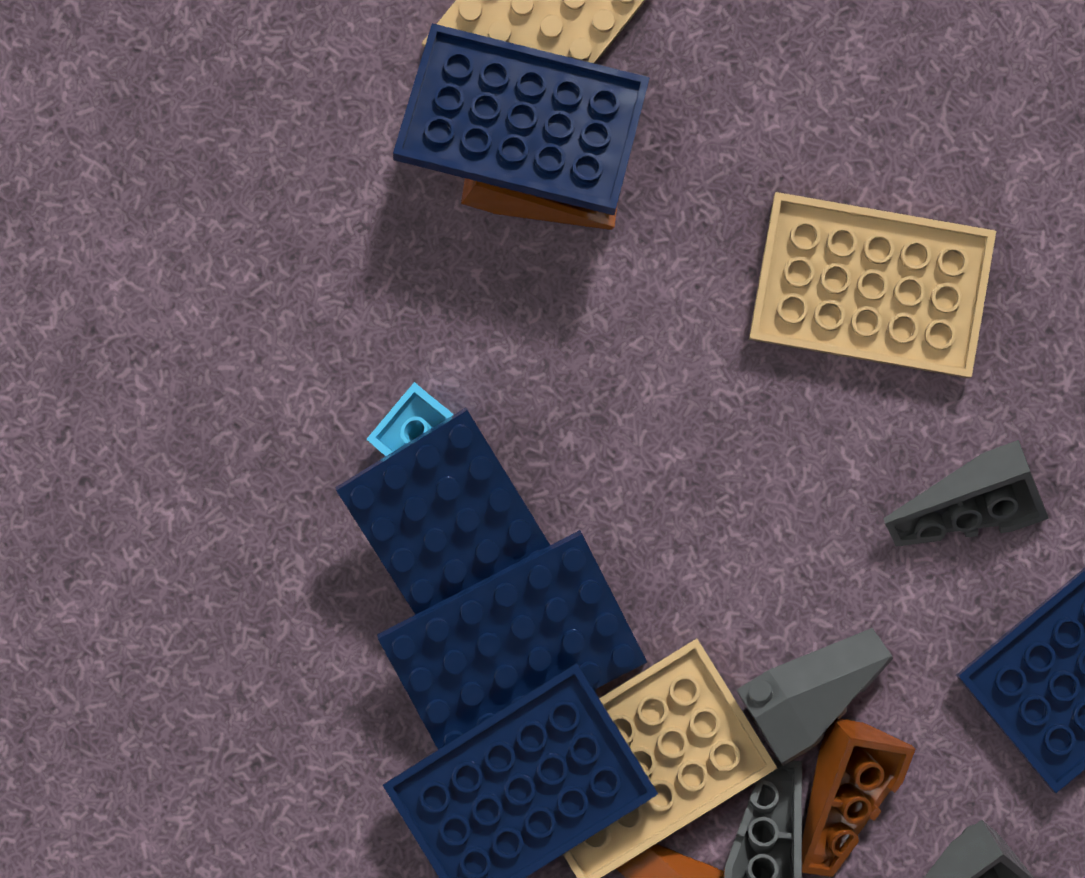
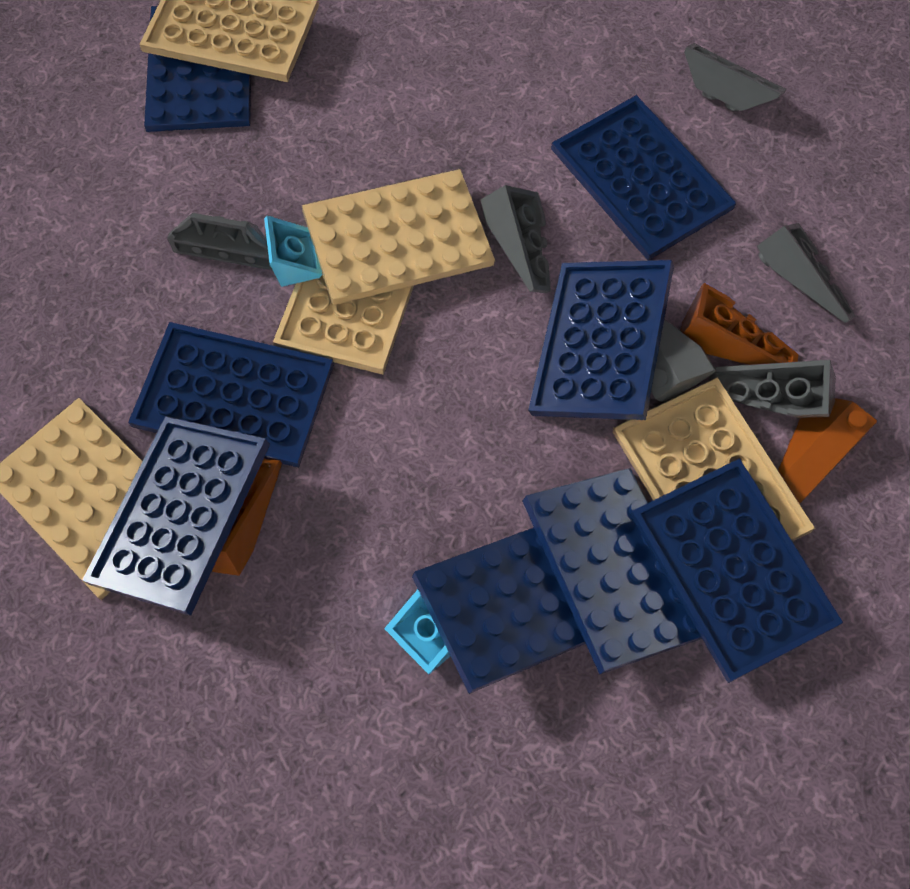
camera: 90 degrees left, 20 degrees down
(702, 153) = (234, 388): none -> dark blue plate
(818, 618) = (602, 340): none -> dark blue plate
(906, 197) = (291, 252): none -> medium azure slope
(922, 104) = (221, 240): none -> dark grey wedge
(949, 334) = (397, 236): none -> tan plate

